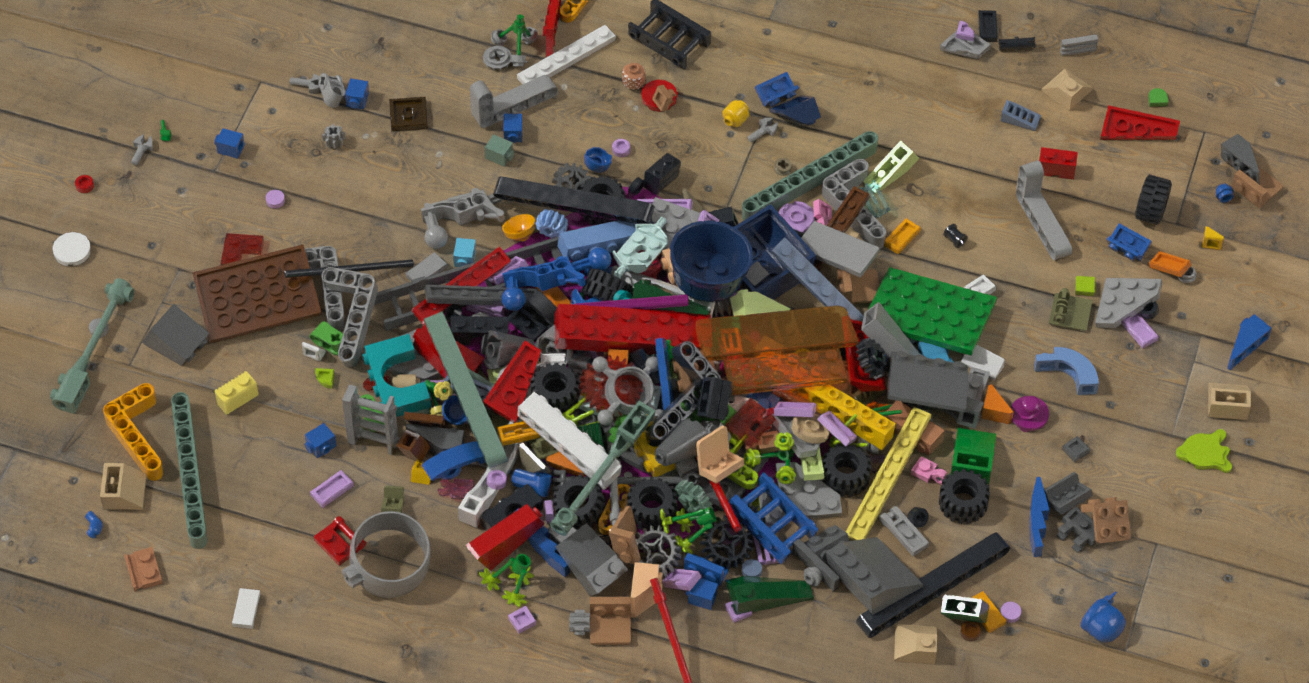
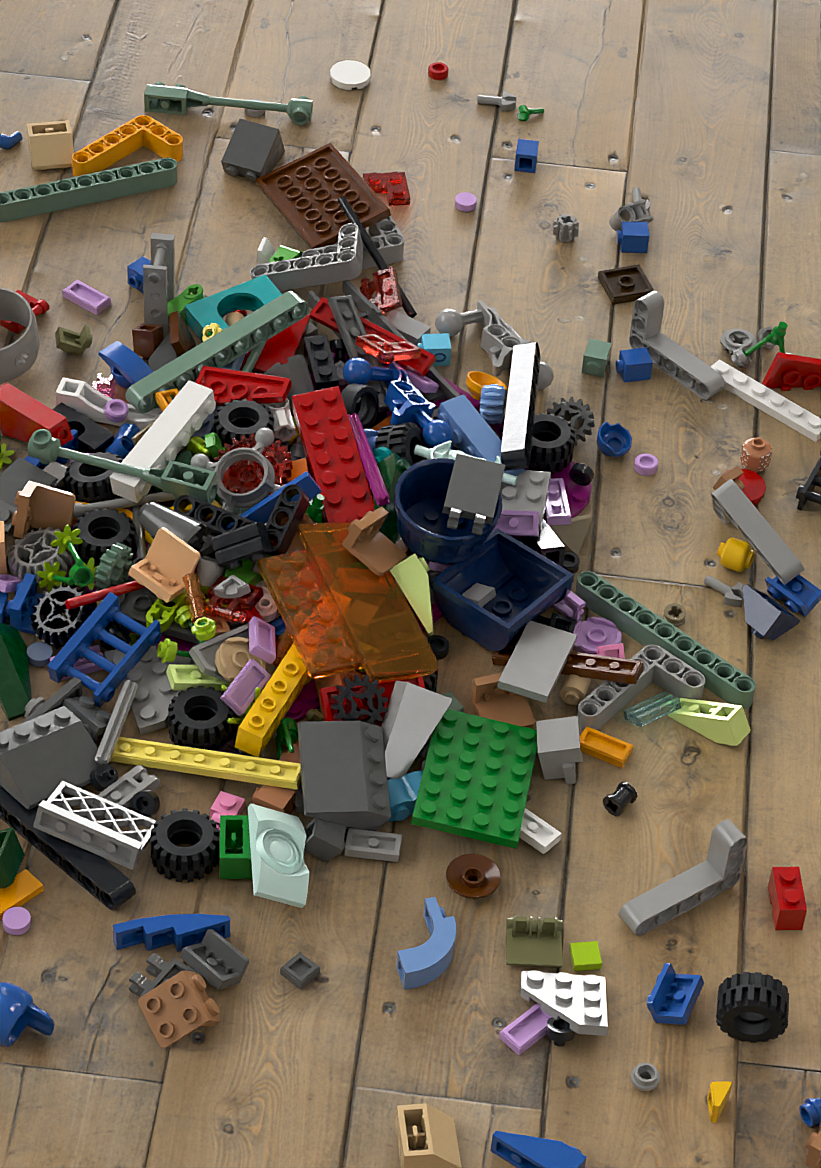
camera: 75 degrees right, 10 degrees down
(236, 392) = (191, 205): light yellow brick -> none
(325, 377) = (235, 272): lime tile -> none
(391, 269) = (386, 289): none -> clear red plate
(498, 272) = (386, 351): none -> clear red plate
(578, 407) = (213, 444): none -> bright green tile
(661, 173) = (610, 495): black brick -> none
(712, 235) = (473, 491): none -> dark grey tile
(724, 91) = (734, 506): none -> light grey beam
(727, 316) = (371, 545): none -> medium nougat bracket
(746, 416) = (232, 588): none -> light grey tile
(749, 443) = (194, 596): none -> clear orange pin
(812, 278) = (471, 636): sand blue plate -> none
(842, 522) = (116, 722): none -> light grey axle
(888, 539) = (103, 776): none -> black tile
(912, 254) = (559, 748): none -> light grey plate
(955, 549) = (94, 834): none -> light grey fence
(985, 360) = (418, 852): white slope -> none
(986, 438) = (278, 856): none -> light aqua slope
(996, 408) = (346, 866): orange slope -> none
(1013, 327) = (470, 868): none -> reddish brown dish
(1029, 413) = (345, 910): magenta plate -> none
(1170, 264) = (653, 1050): orange tile -> none
(1205, 451) = (332, 1126): lime tile -> none

